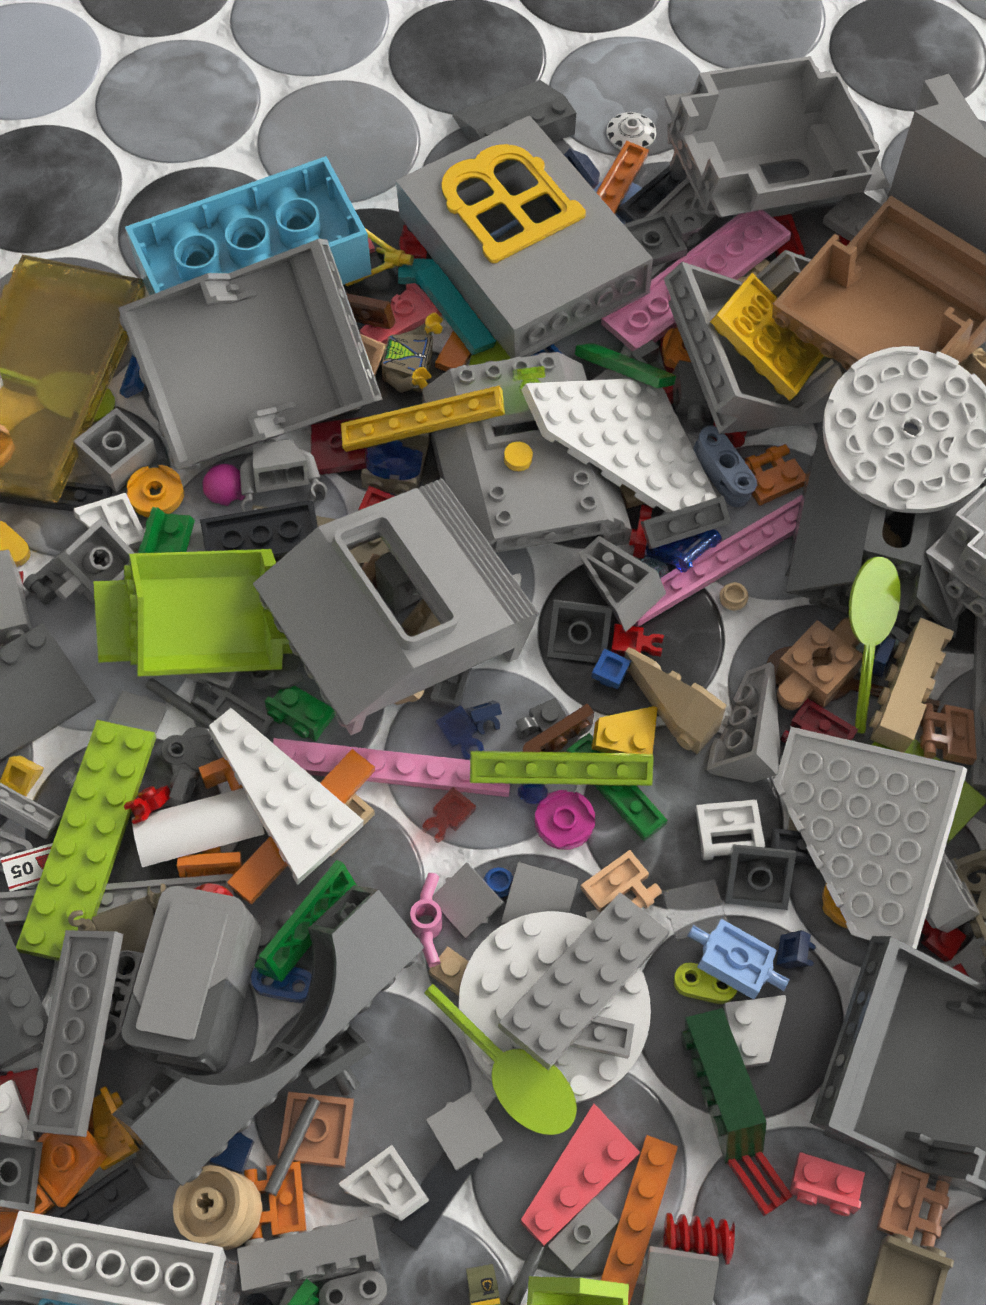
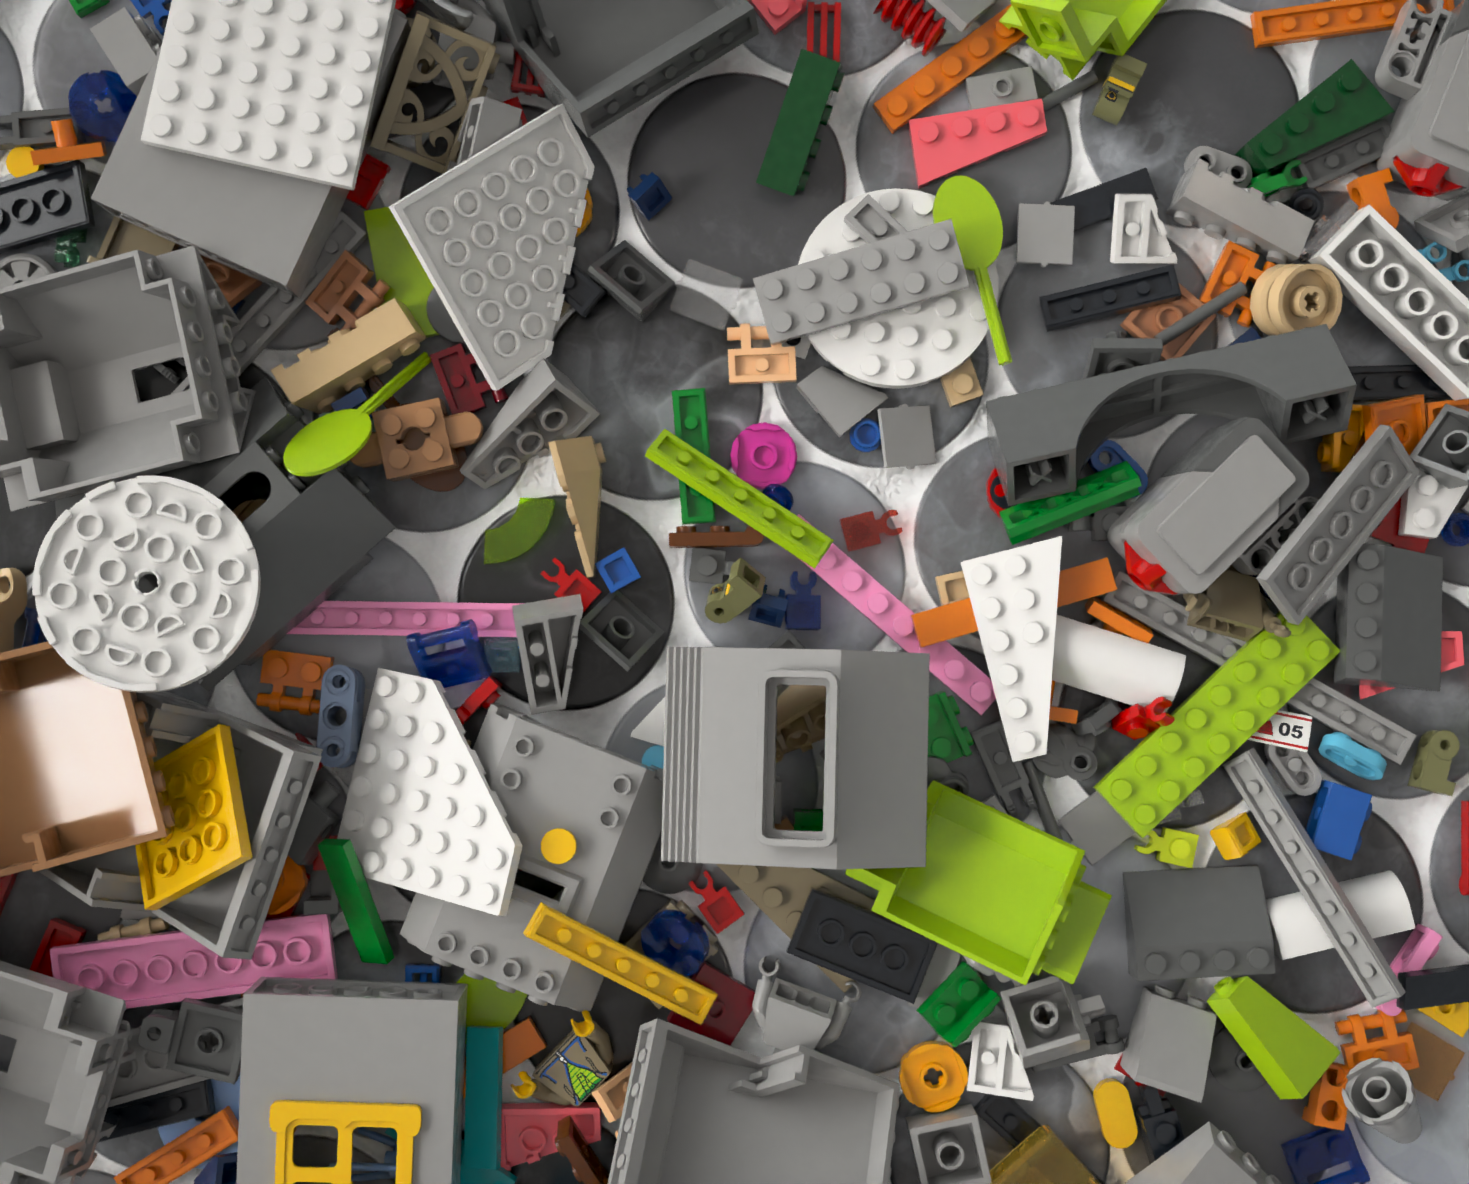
camera: 150 degrees left, 25 degrees up
(67, 738) = (1172, 846): none -> neon yellow plate
(222, 484) = (860, 1039): dark pink hair -> none
(376, 1113) = (1110, 298): none -> black tile
(429, 931) = (965, 427): bright pink piece -> none
(515, 703) = (735, 594): none -> olive leg
(528, 375) = (481, 933): clear neon green tile -> none
(626, 732) = (648, 497): yellow wing -> none
(686, 522) = (433, 670): dark grey plate -> none
(699, 656) = (520, 532): none -> clear neon green tile
(703, 988) = (746, 223): neon yellow plate -> none
(728, 819) = (614, 351): white plate -> none
(733, 596) = (438, 572): tan plate -> none
(737, 959) = (708, 218): light blue plate -> none
(755, 1027) = (733, 157): white wing -> none

